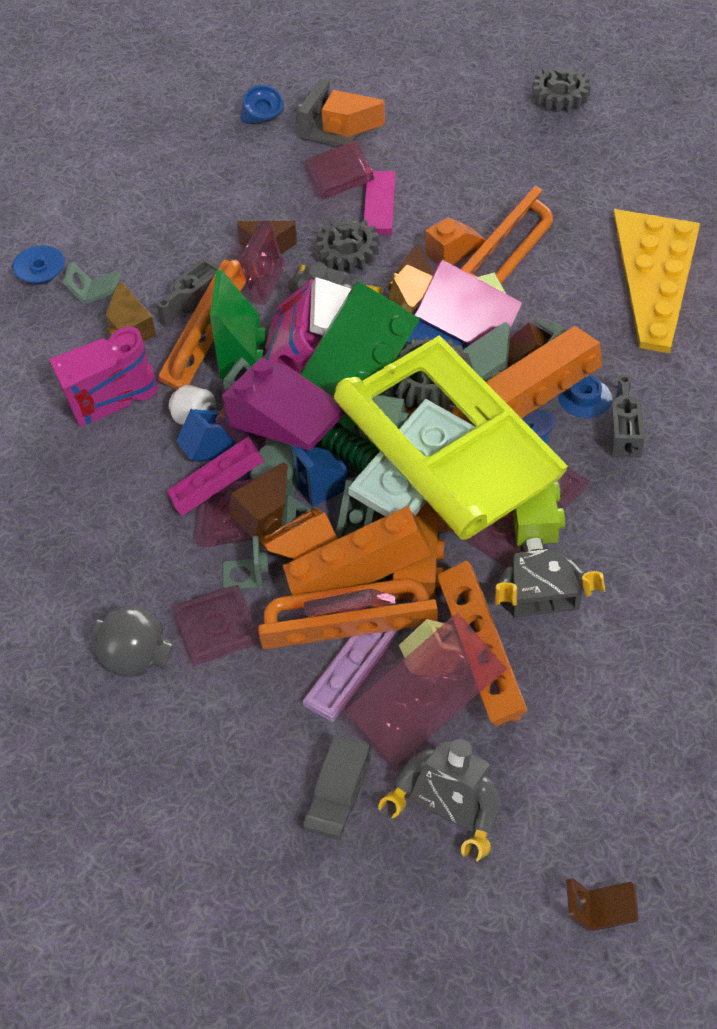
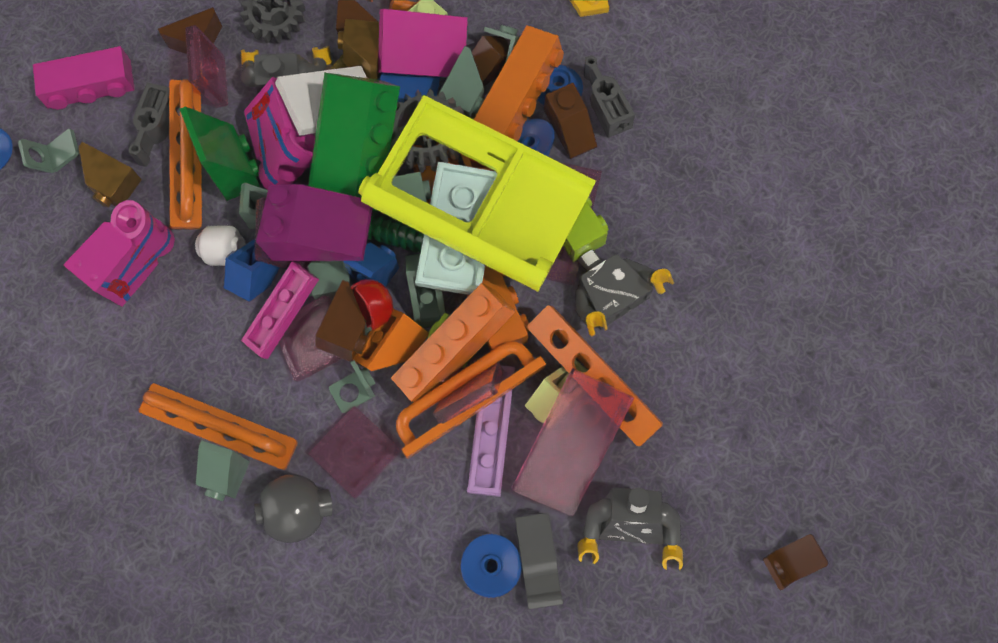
camera: 25 degrees left, 20 degrees up
(85, 581) = (219, 471): none -> sand green slope
(150, 590) = (277, 446): none -> orange piece
(153, 238) = (83, 78): none -> dark pink brick
(285, 758) = (475, 568): none -> blue piece
(301, 491) = (373, 302): none -> red hair
(579, 424) = (570, 120): none -> reddish brown slope

